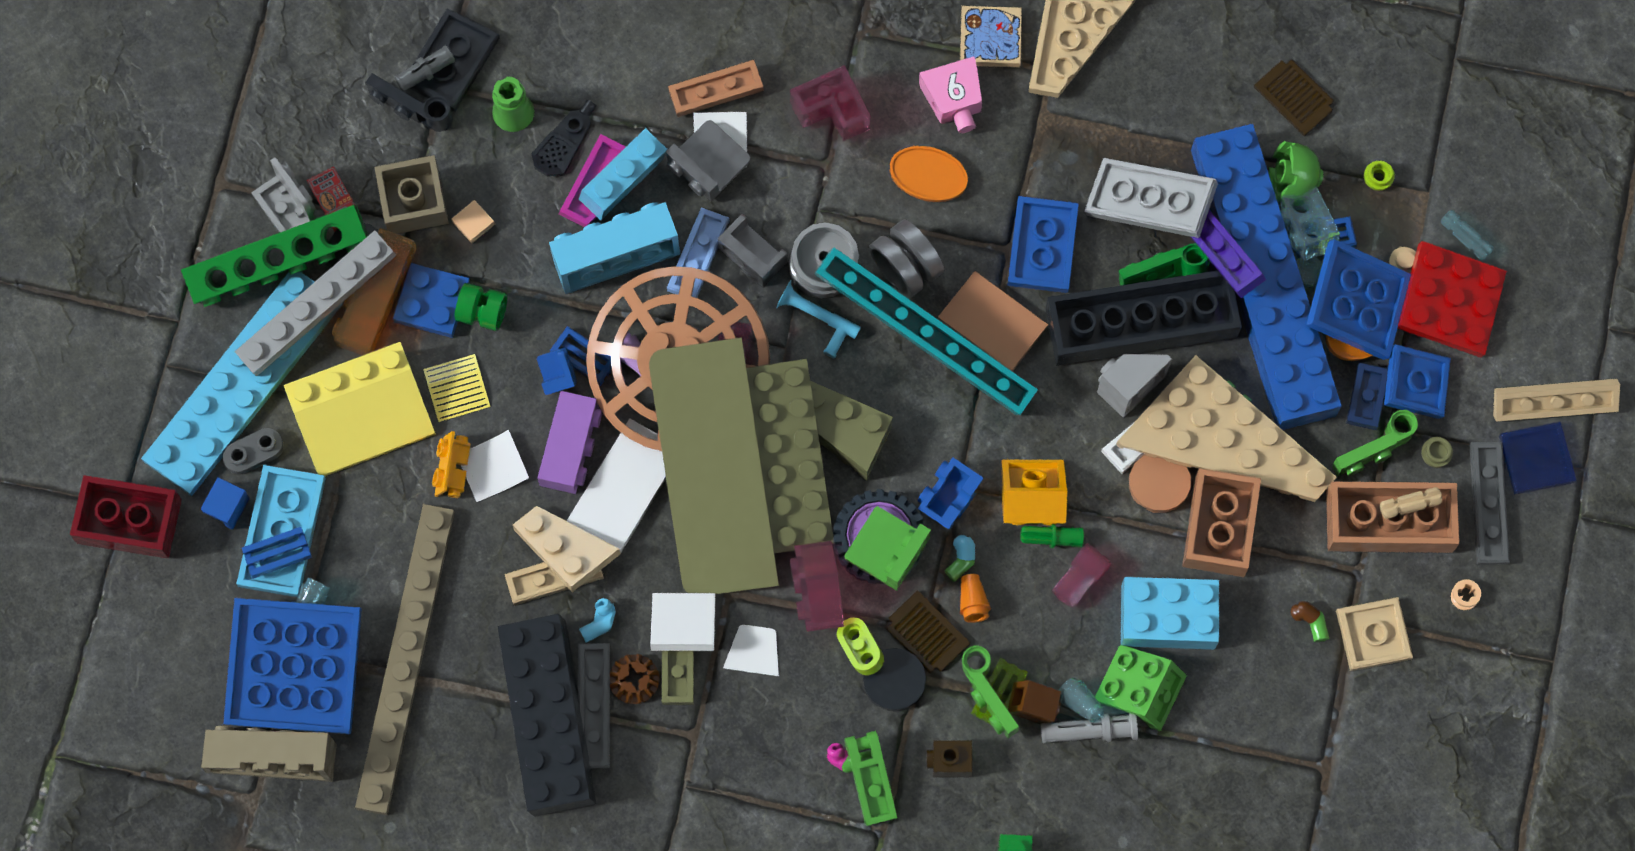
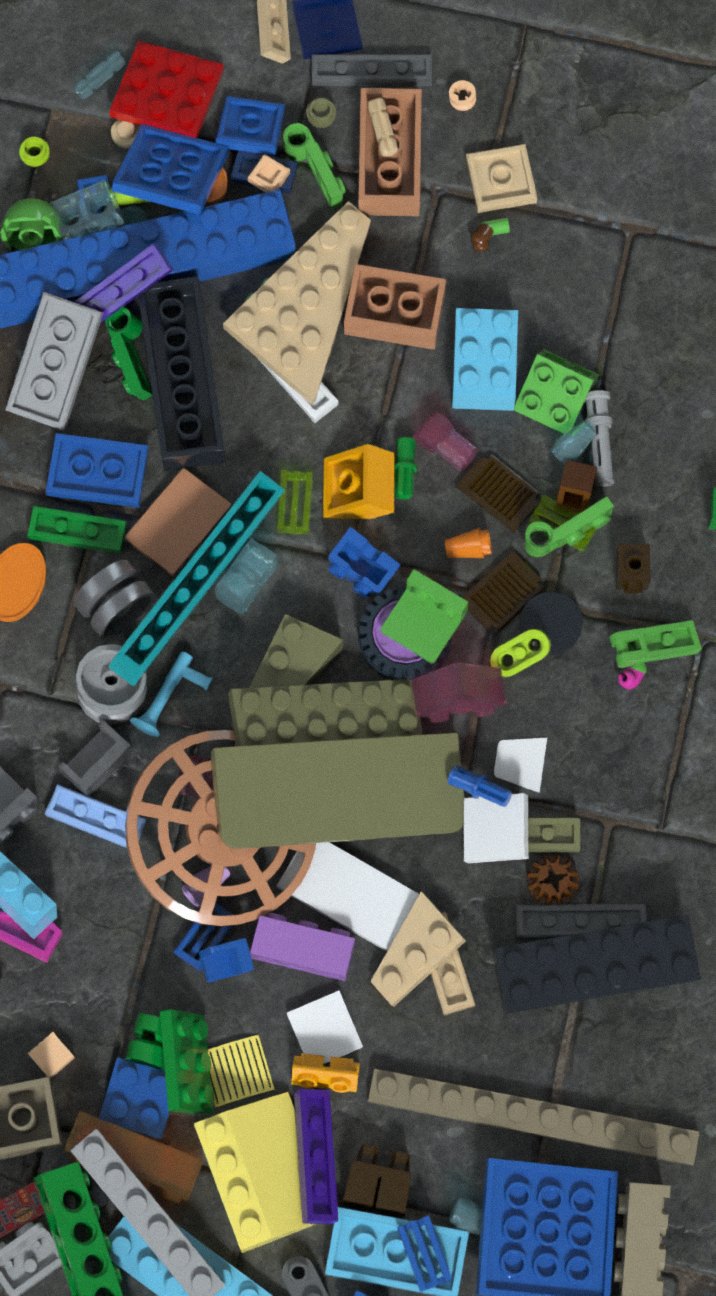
camera: 90 degrees left, 0 degrees up
(343, 512) = (364, 1179): none -> dark brown hips
(370, 455) = (316, 1156): none -> dark purple plate
(458, 335) = (186, 1062): none -> green plate
(602, 621) = (493, 912): medium azure arm -> none
(615, 247) = (93, 900): medium azure brick -> none
(721, 603) = (479, 786): none -> blue axle
(934, 384) = (246, 576): none -> clear light blue brick
(965, 557) = (427, 553): arm -> none
(981, 227) = (77, 530): none -> green plate
(1016, 420) = (296, 477): none -> clear neon green tile
(1032, 631) = (500, 492): none -> dark brown window
(1131, 379) = (251, 384): light grey slope -> none
(1159, 484) = (351, 368): nougat tile -> none
(1360, 397) = (268, 174): none -> light nougat tile

